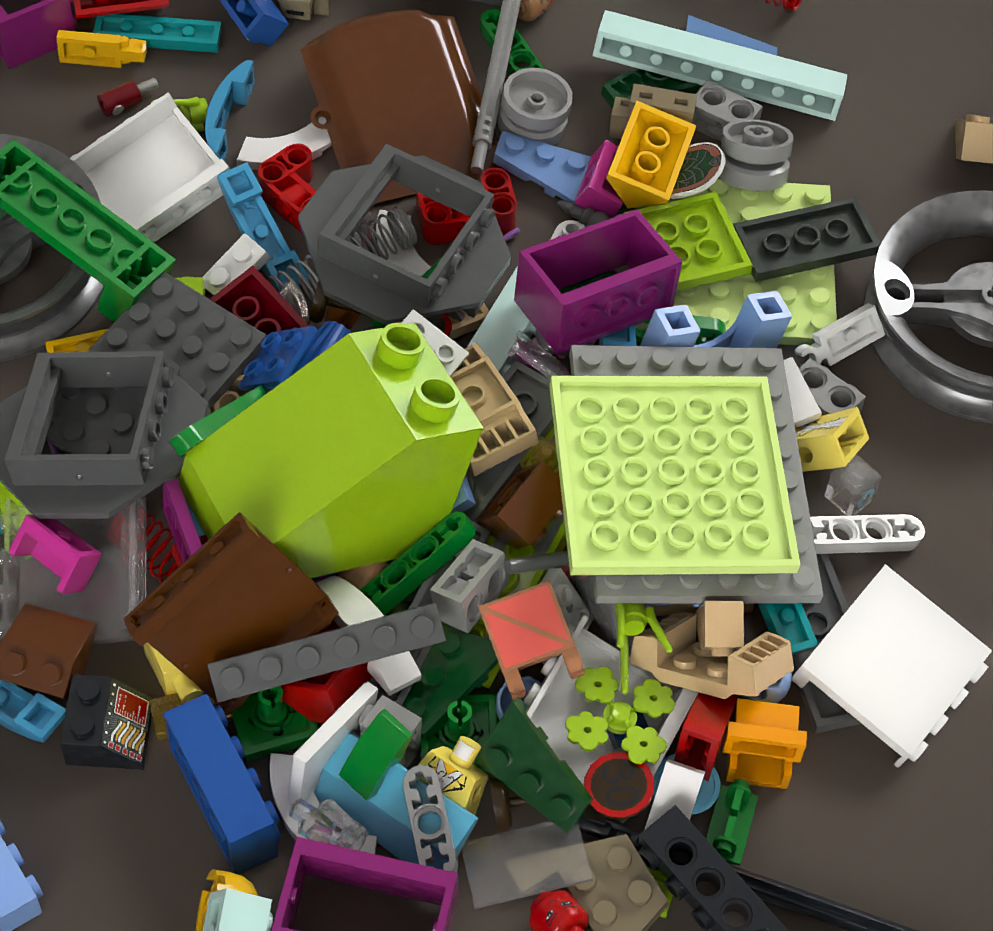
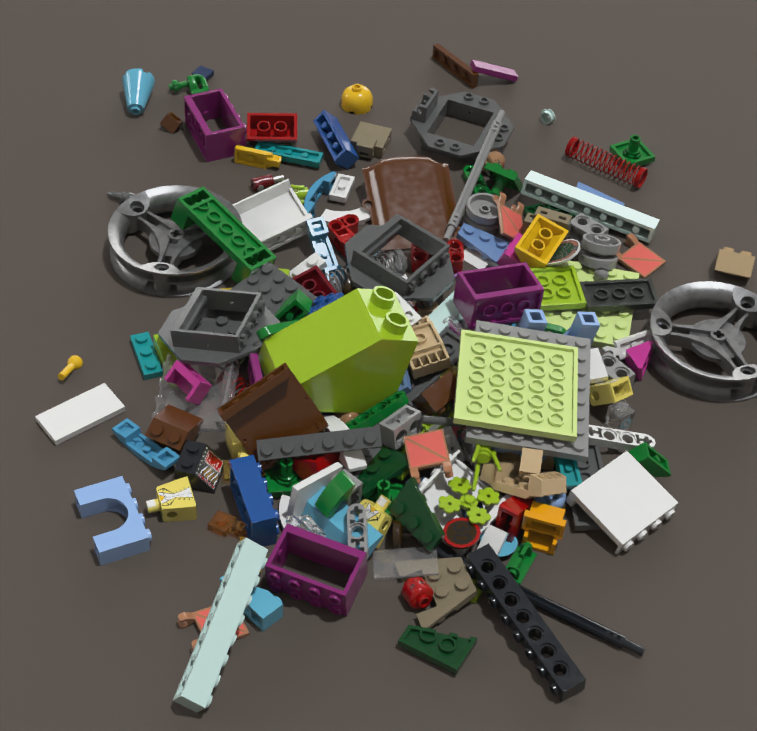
camera: 10 degrees right, 10 degrees down
(71, 804) = (174, 501): none -> light yellow torso
(175, 832) = (225, 523): none -> clear orange plate
(228, 370) = (294, 307): none -> green slope
(267, 89) = (341, 188): none -> white plate
(532, 197) = (474, 258): none -> white sticker
(556, 29) = (502, 178): none -> green plate
(584, 110) = (509, 219): none -> flag
(766, 201) = (601, 274): none -> light grey hinge
(825, 153) = (640, 258): none -> flag
(862, 360) = (639, 358): none -> dark pink slope
(923, 568) = (651, 460): none -> green slope

